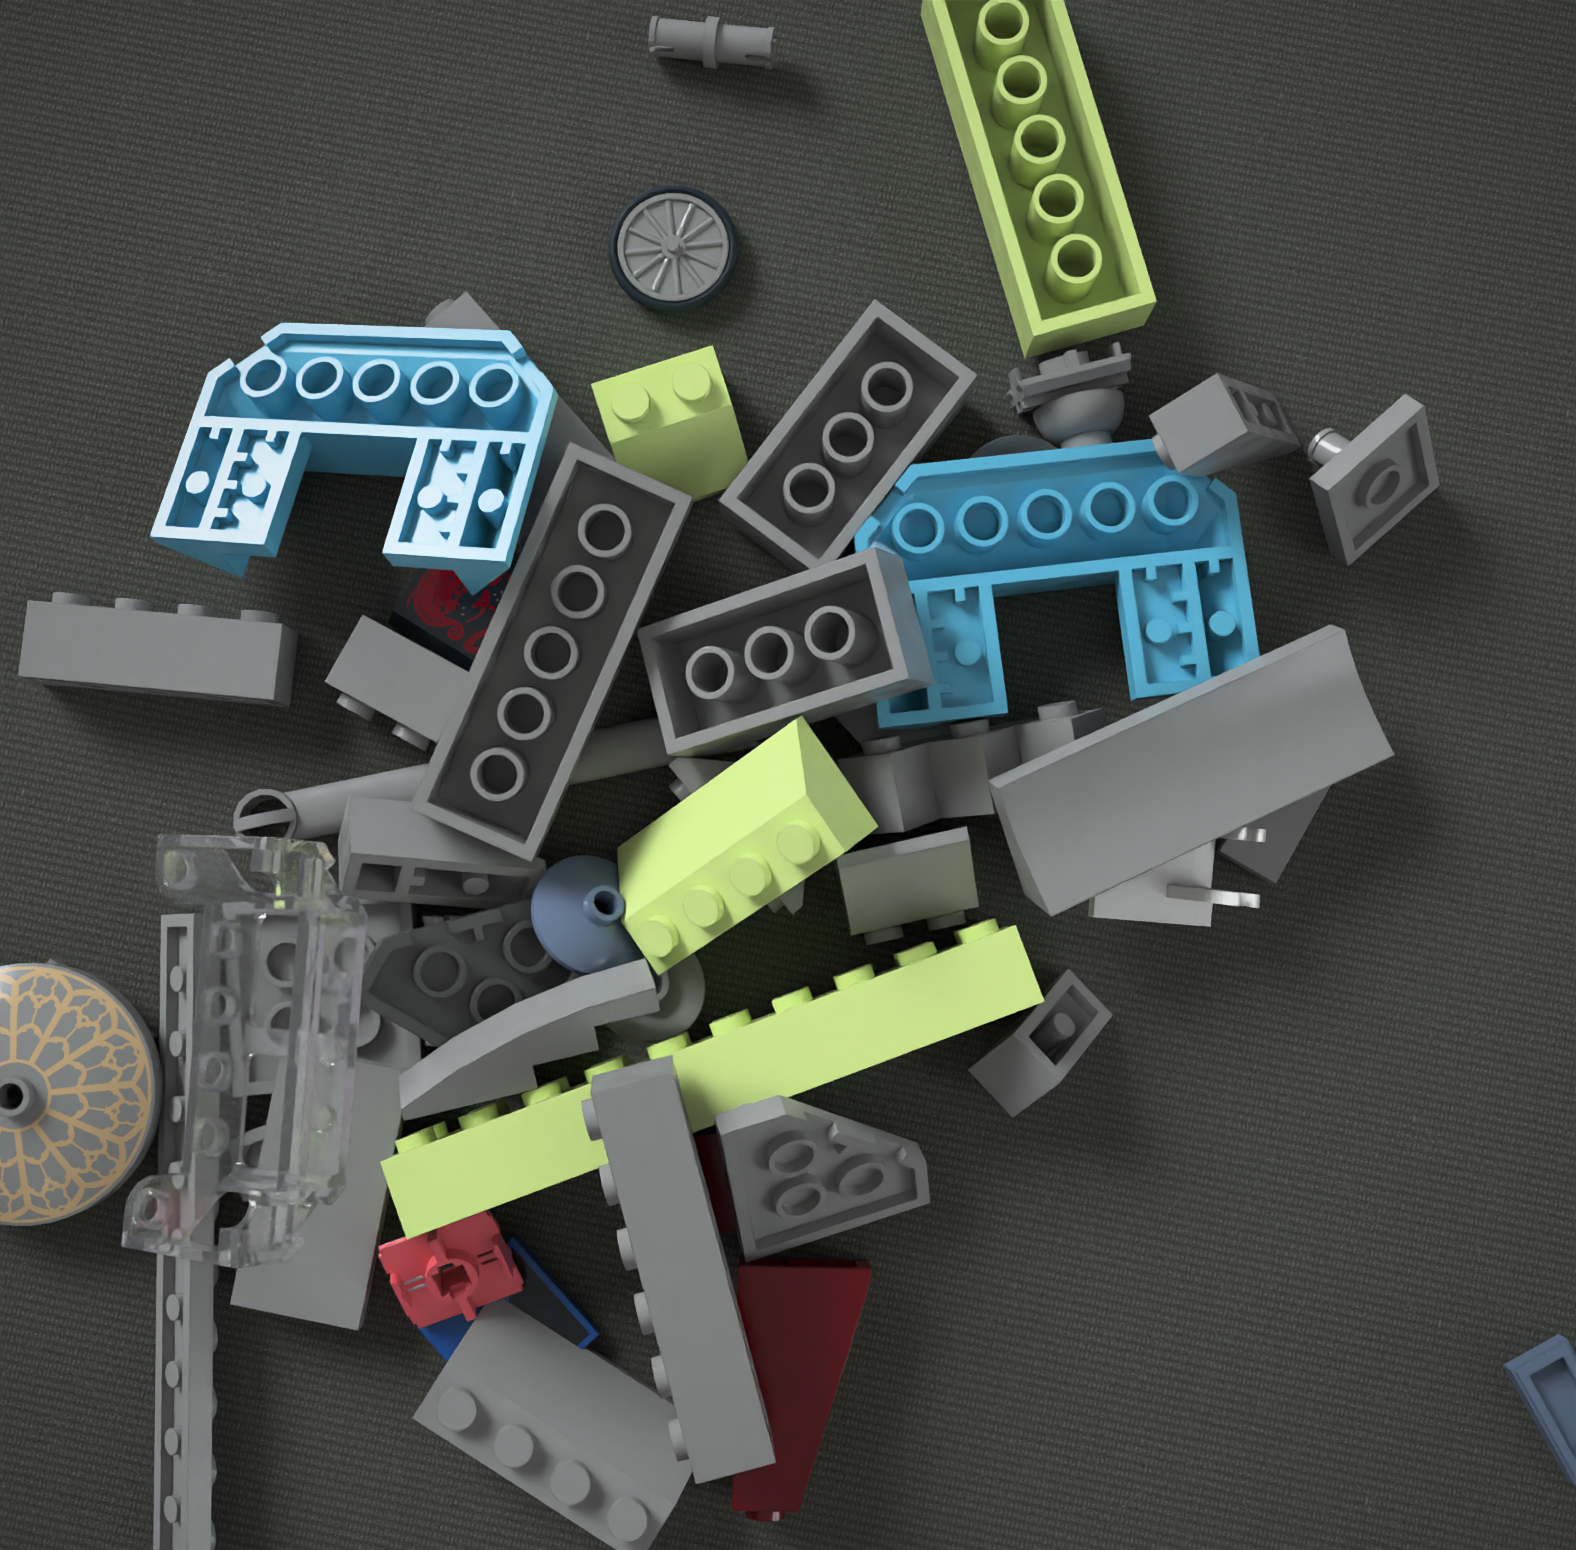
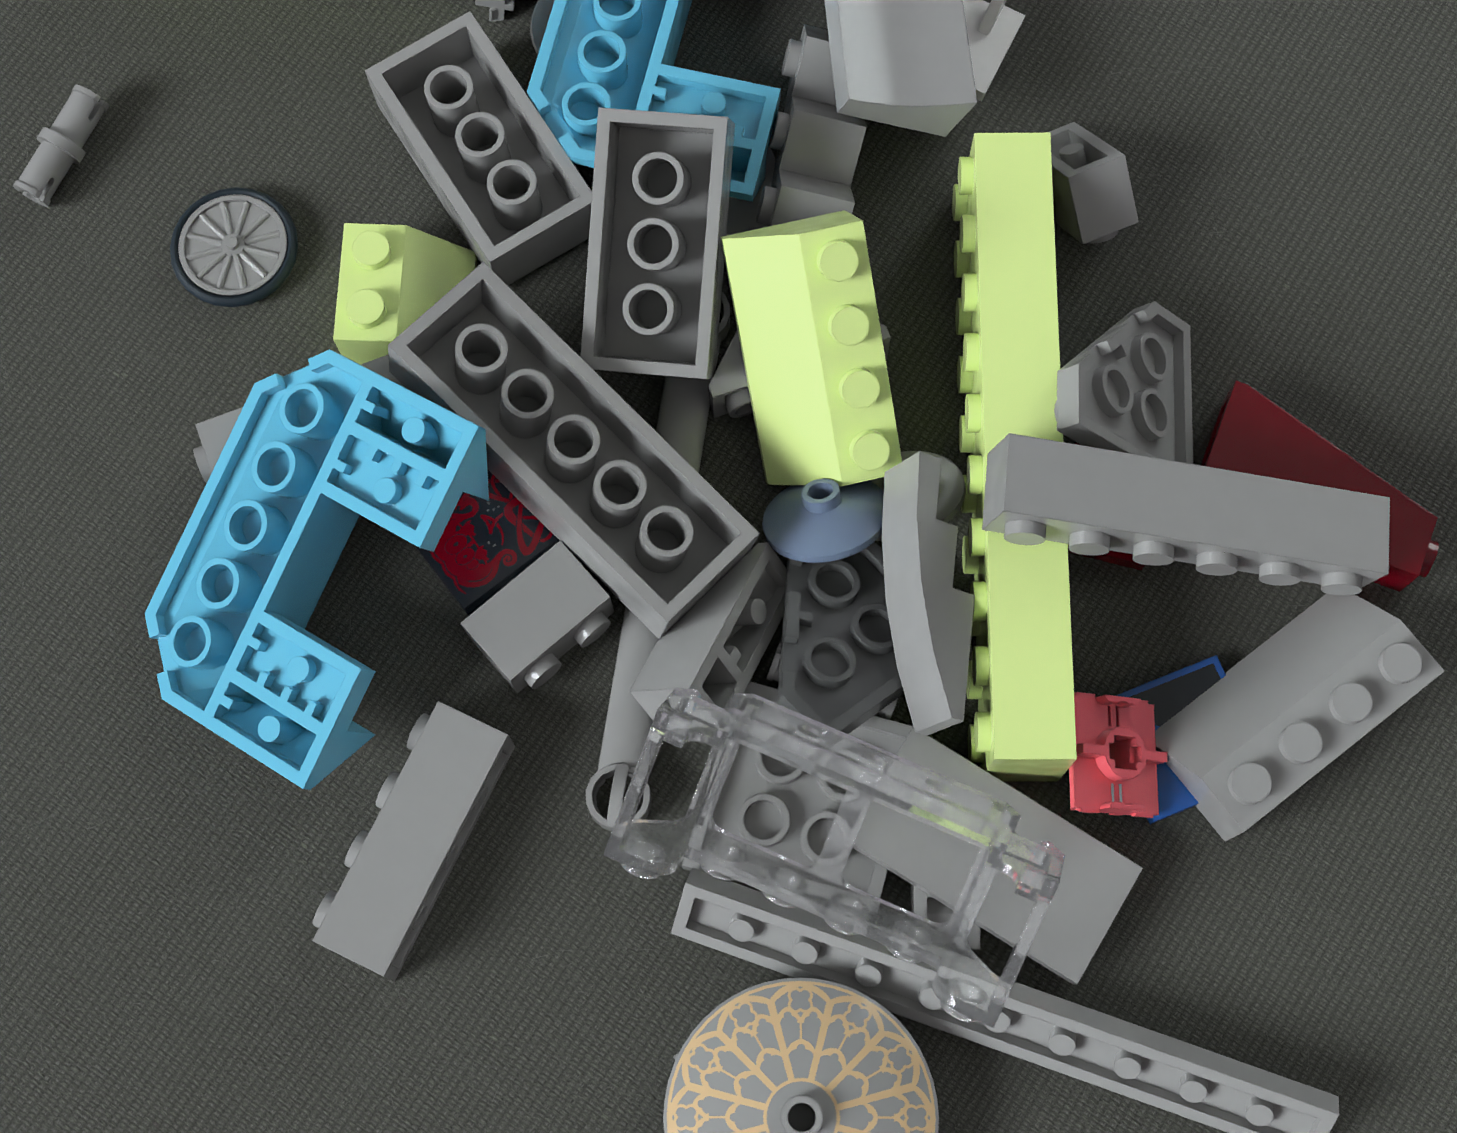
camera: 70 degrees left, 10 degrees down
(907, 883) = (900, 231): light grey slope -> none

